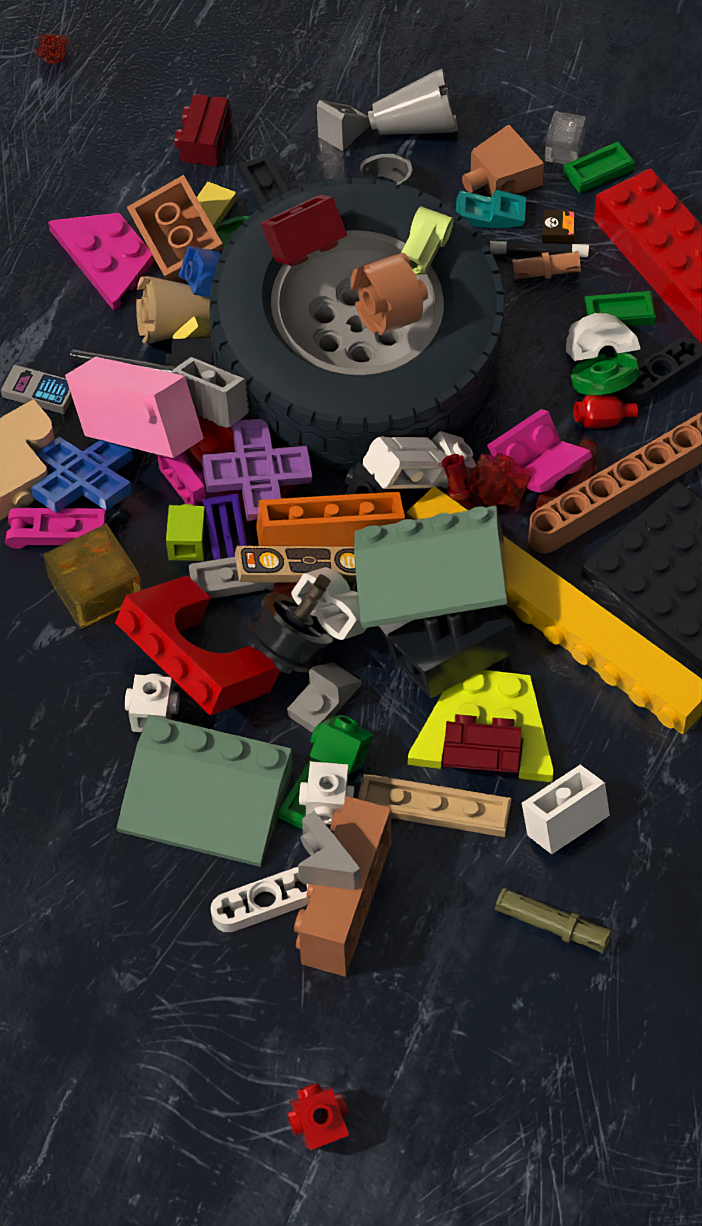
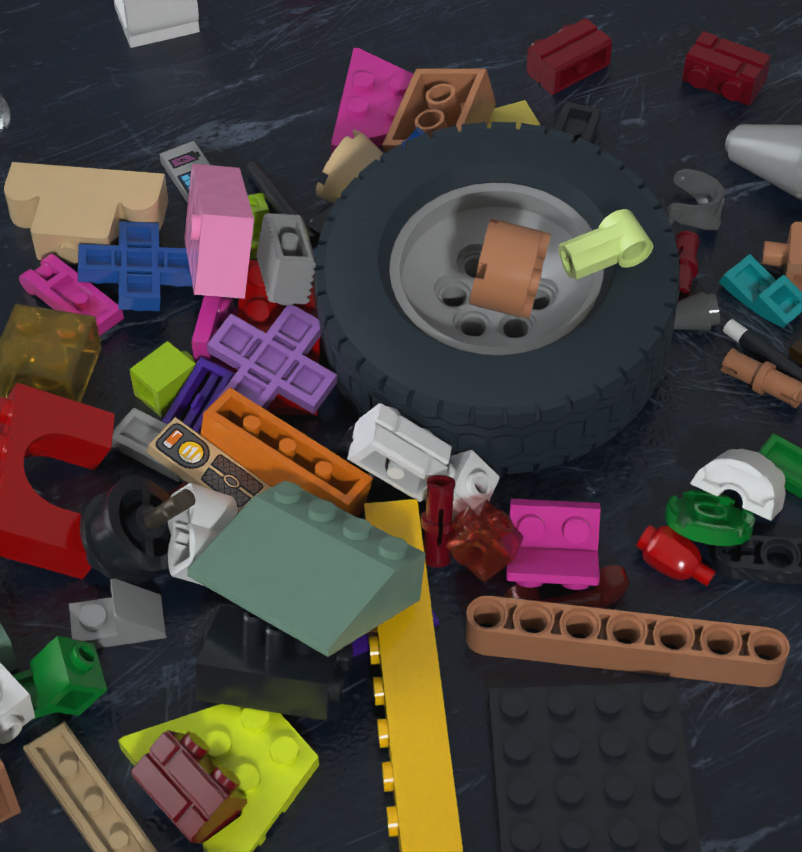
camera: 40 degrees right, 5 degrees down
(304, 230) = (491, 159): dark red brick -> none
(316, 70) = (726, 68): none -> dark red brick
(340, 123) = (699, 123): light grey slope -> none

